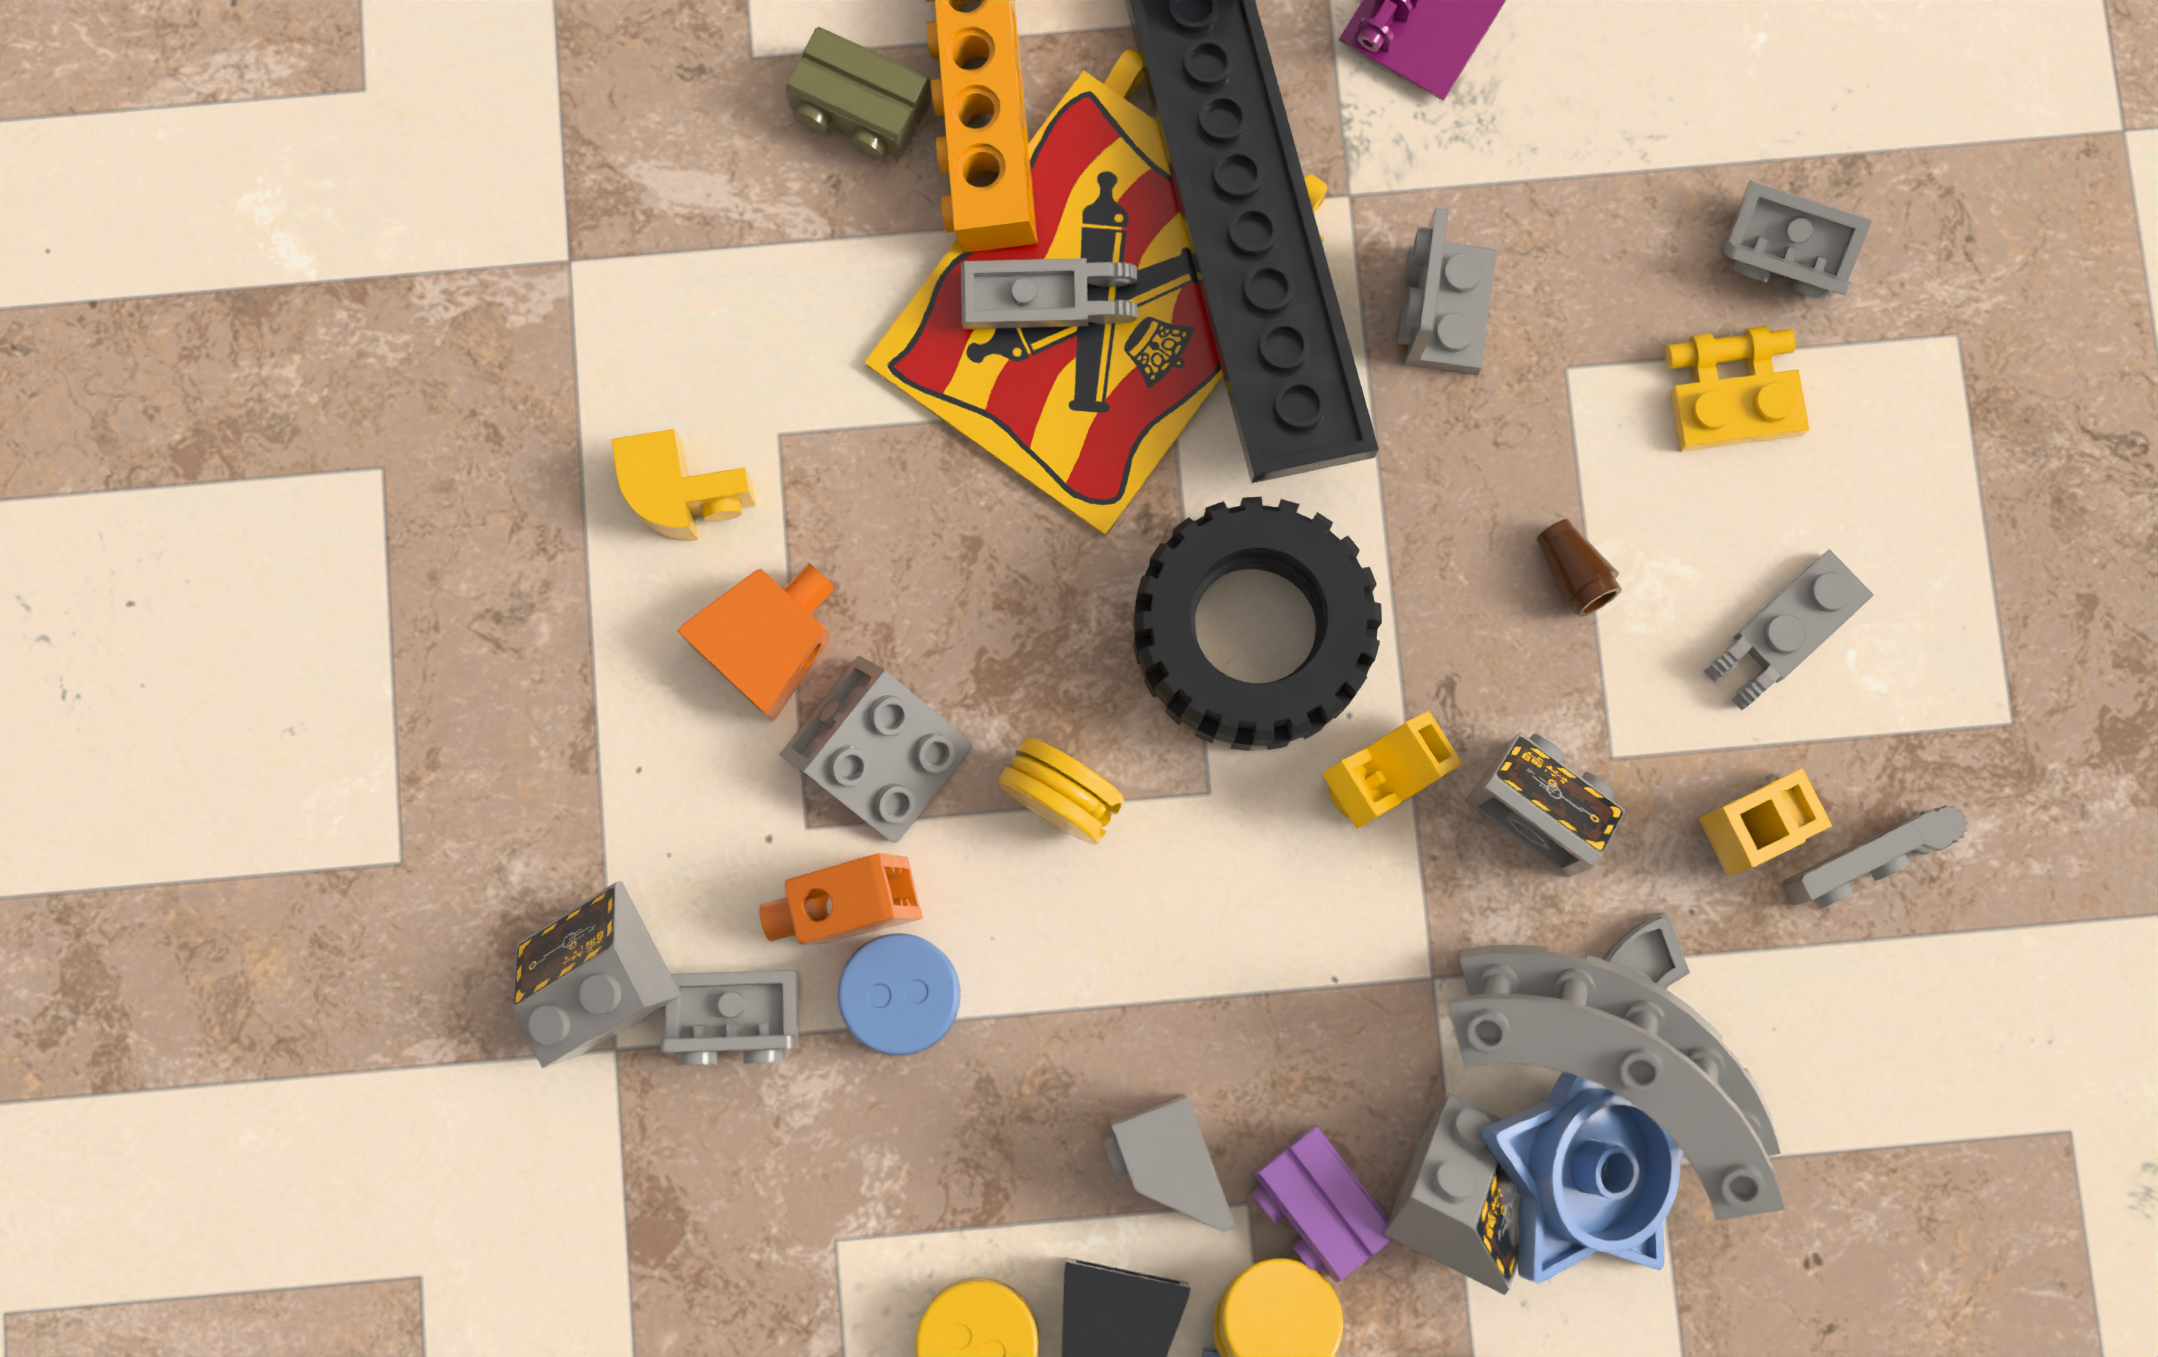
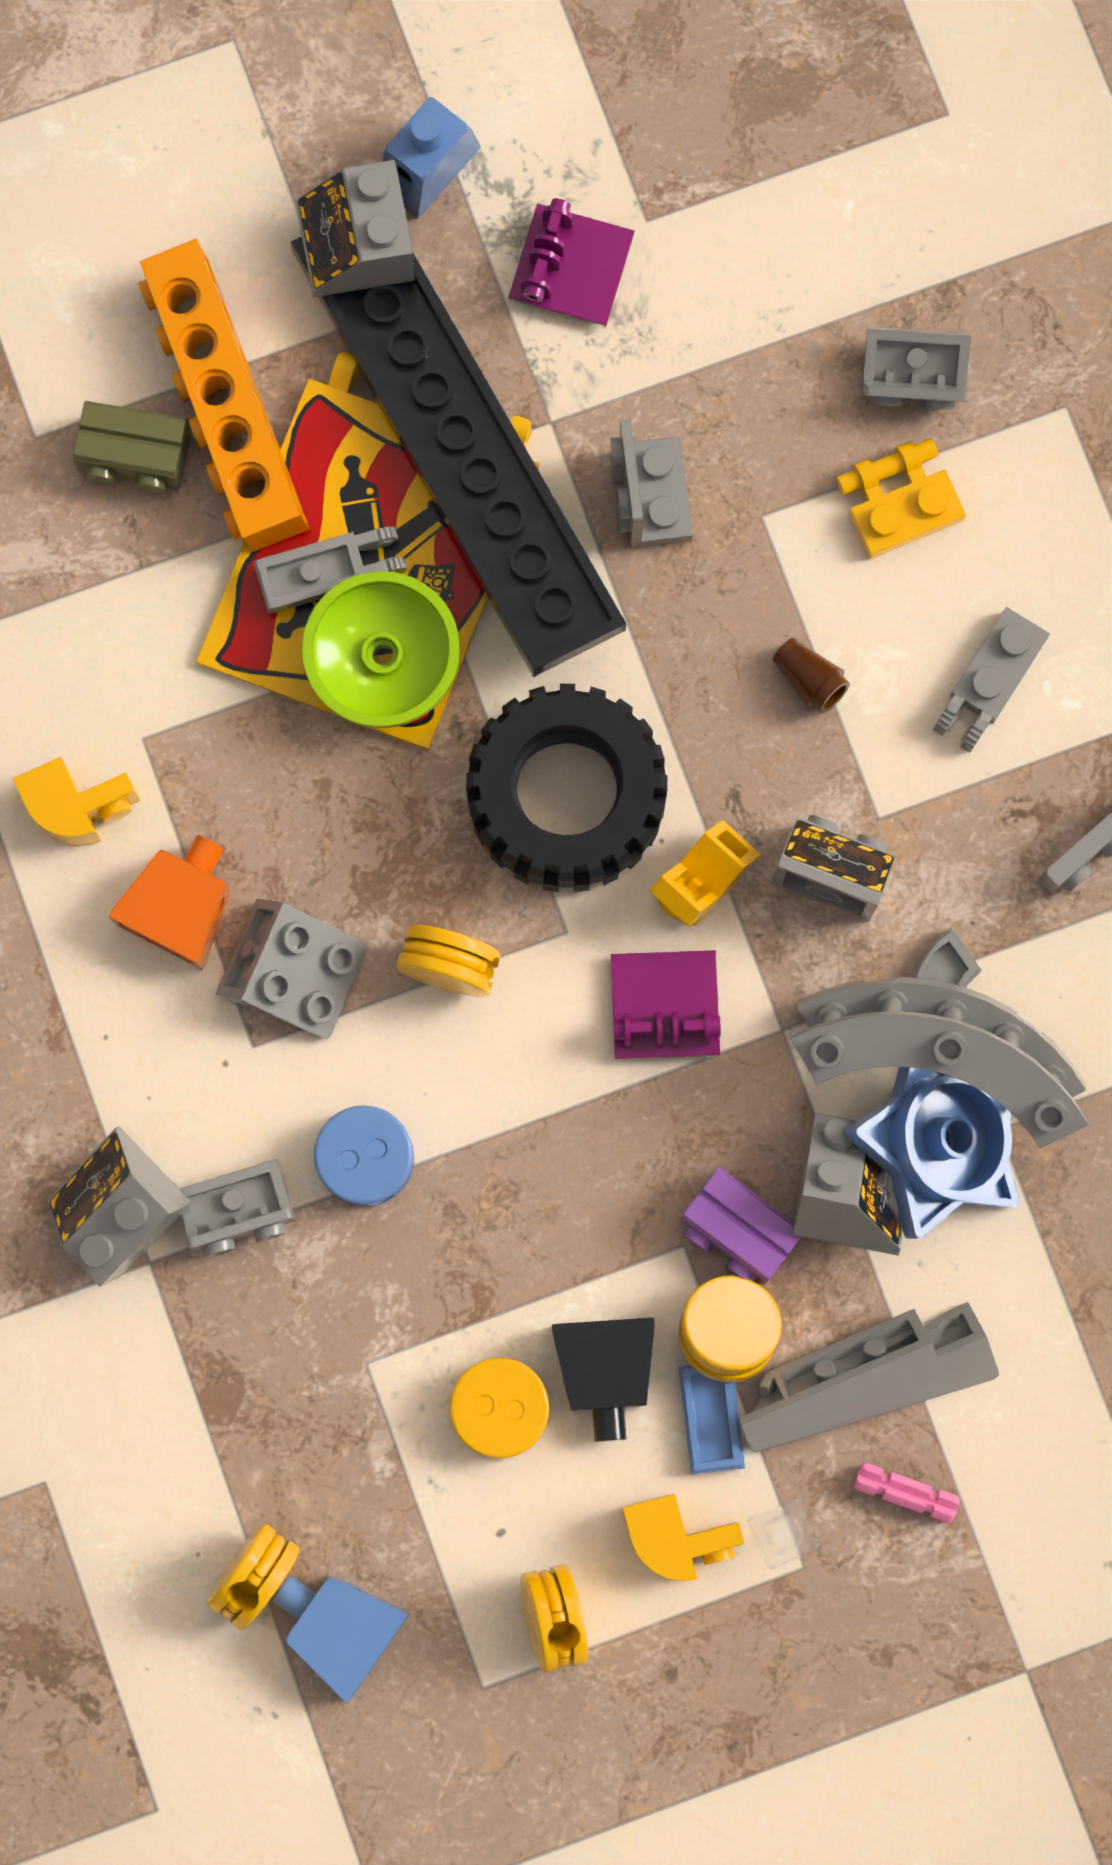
camera: 15 degrees left, 0 degrees up
(864, 897) = (319, 1084): orange torso -> none
(1071, 362) = (376, 614): none -> lime dish
(1169, 1161) = (611, 1223): light grey slope -> none
(1303, 911) = (665, 1004): none -> magenta hinge
(1764, 823) = (1007, 835): yellow brick -> none

